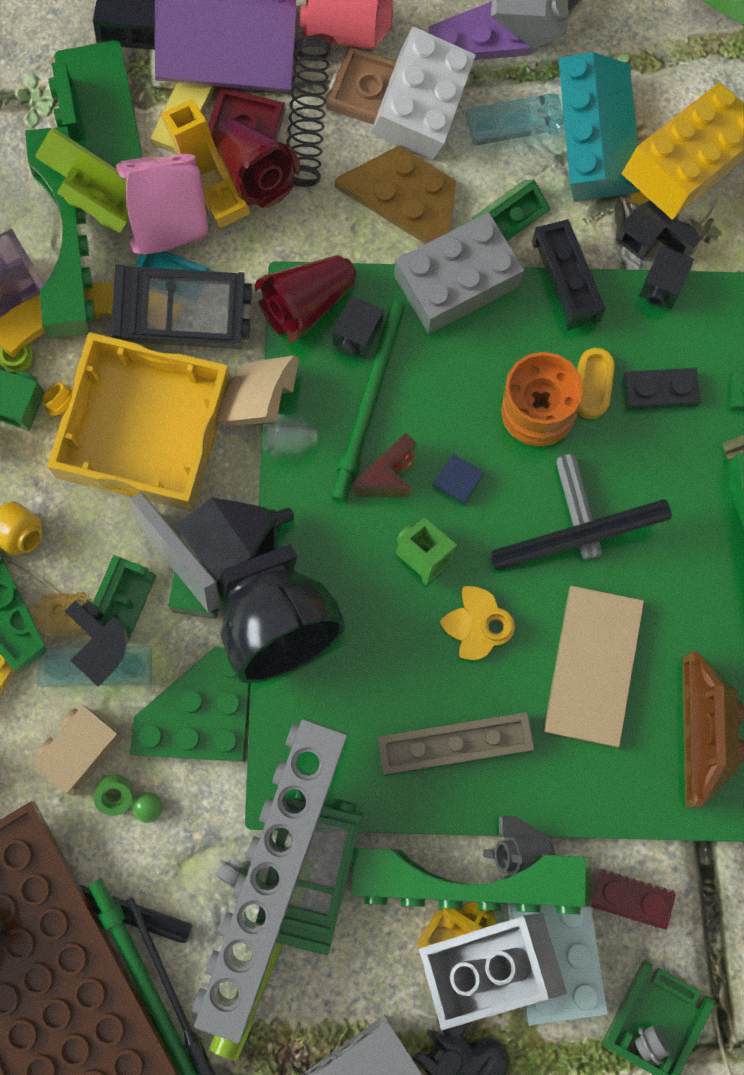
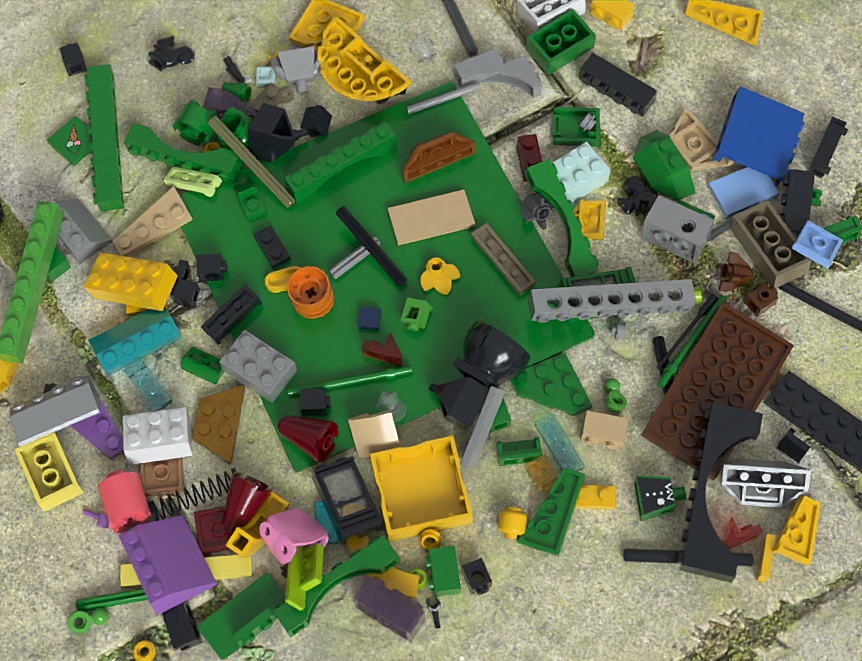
camera: 115 degrees left, 10 degrees down
(108, 641) = (550, 435): black brick -> none
(492, 970) = (597, 190): light grey brick -> none

